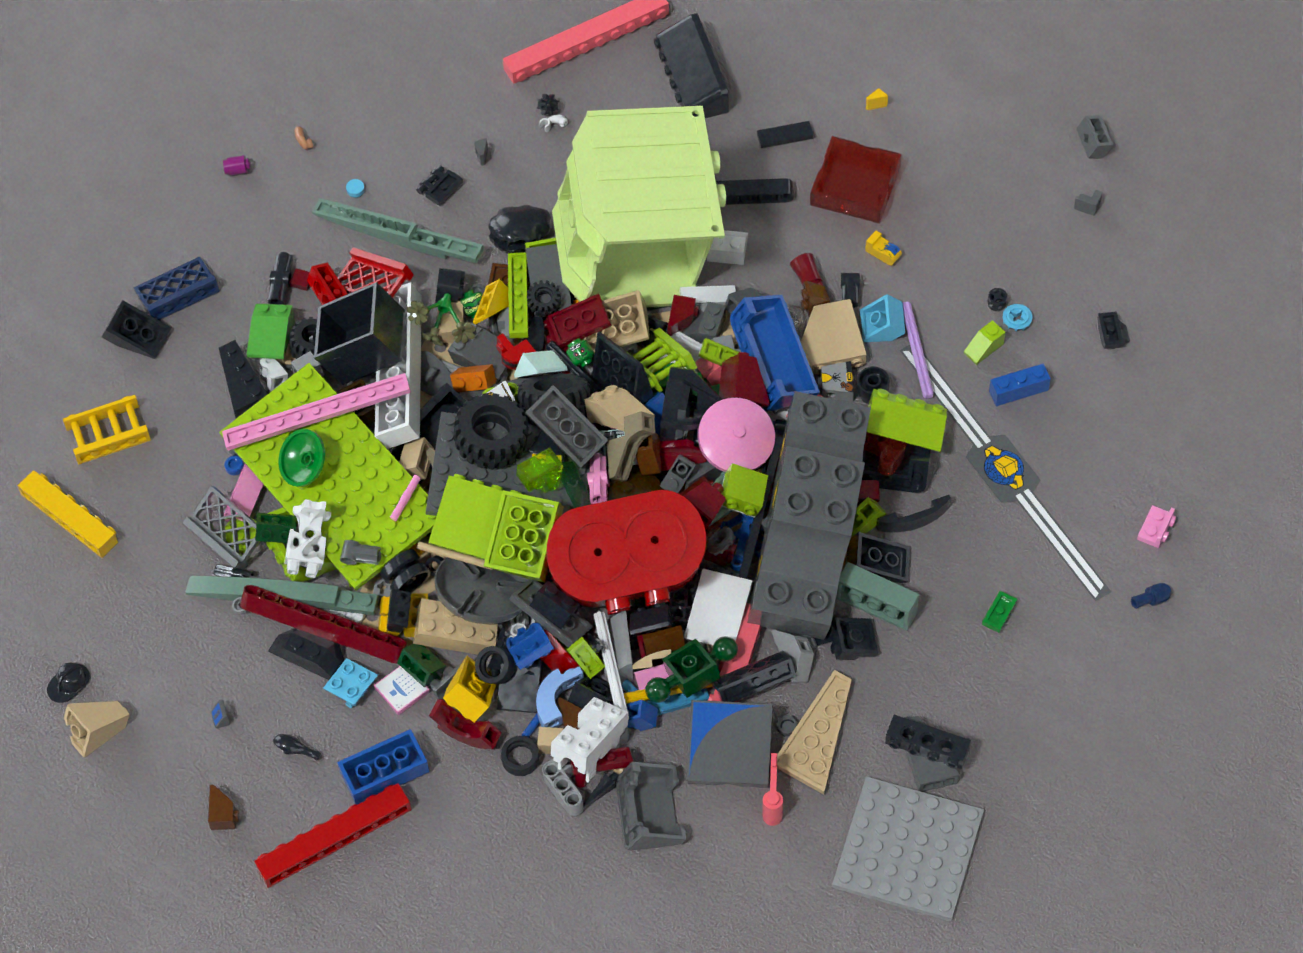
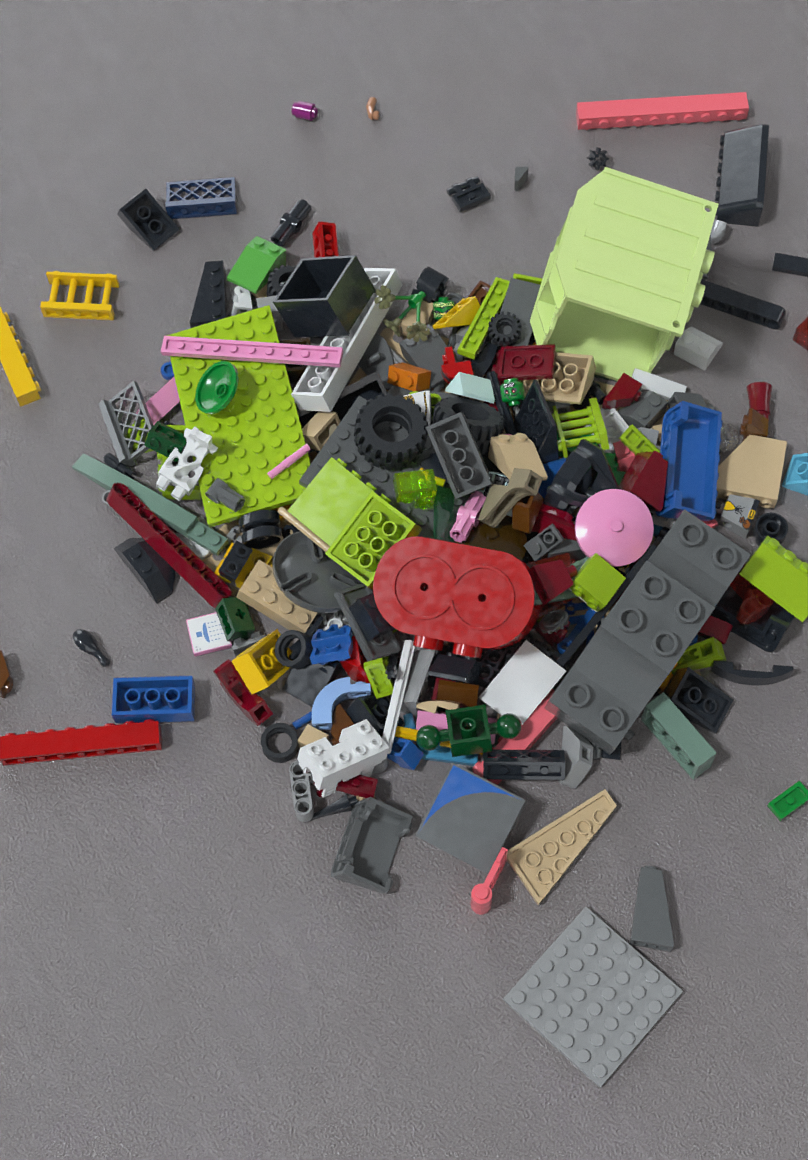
camera: 25 degrees right, 5 degrees up
(220, 715) = (44, 589): dark grey slope -> none
(299, 279) = (307, 229): dark red tile -> none
(350, 682) = (166, 608): medium azure hinge -> none
(355, 188) = (395, 168): medium azure tile -> none
(378, 265) = (377, 244): red fence -> none
(398, 231) = (412, 221): sand green slope -> none
(517, 226) = (517, 256): black piece -> none
(557, 119) = (589, 174): white arm -> none
(786, 725) = (535, 821): dark grey tile -> none
(850, 284) = (793, 429): black piece -> none
(852, 638) = (636, 765): black plate -> none
(921, 733) = (654, 890): black brick -> none

